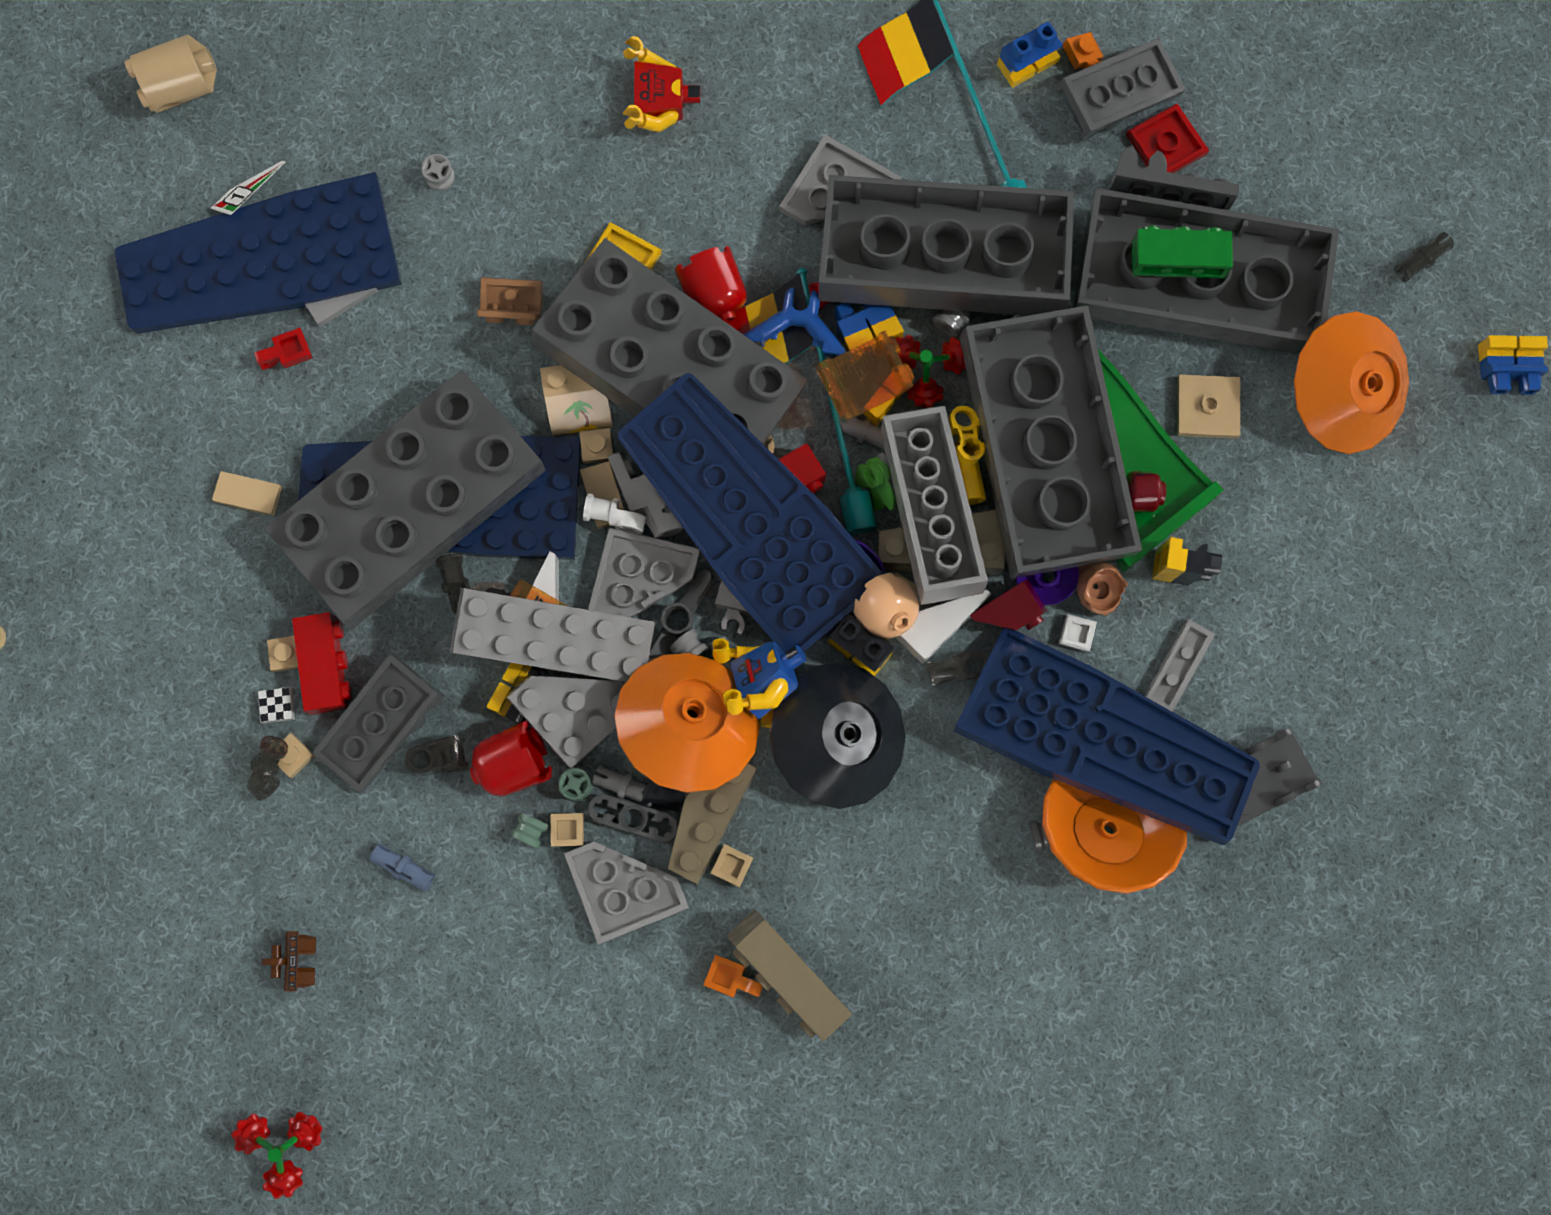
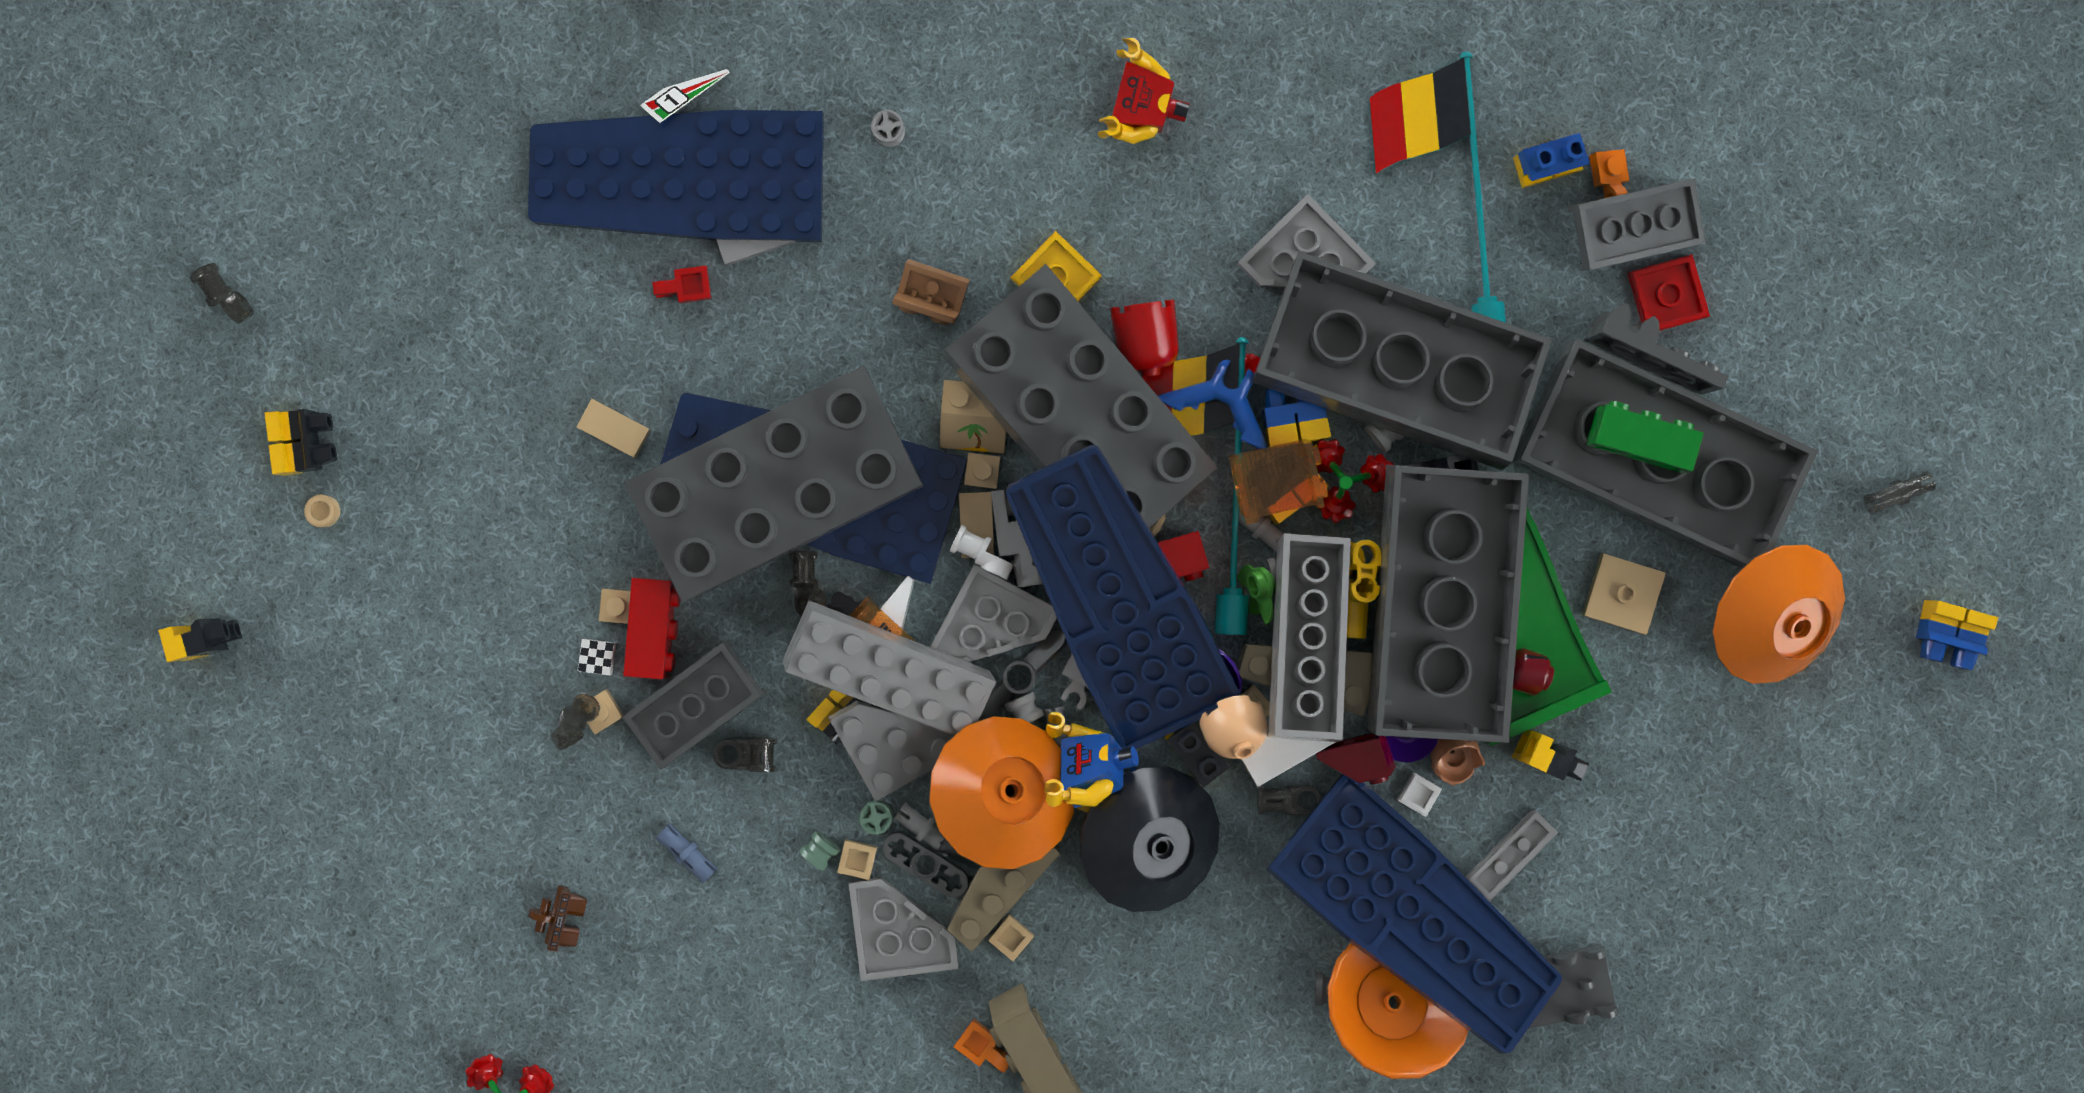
camera: 15 degrees right, 10 degrees up
(510, 761) = (817, 780): red cylinder -> none

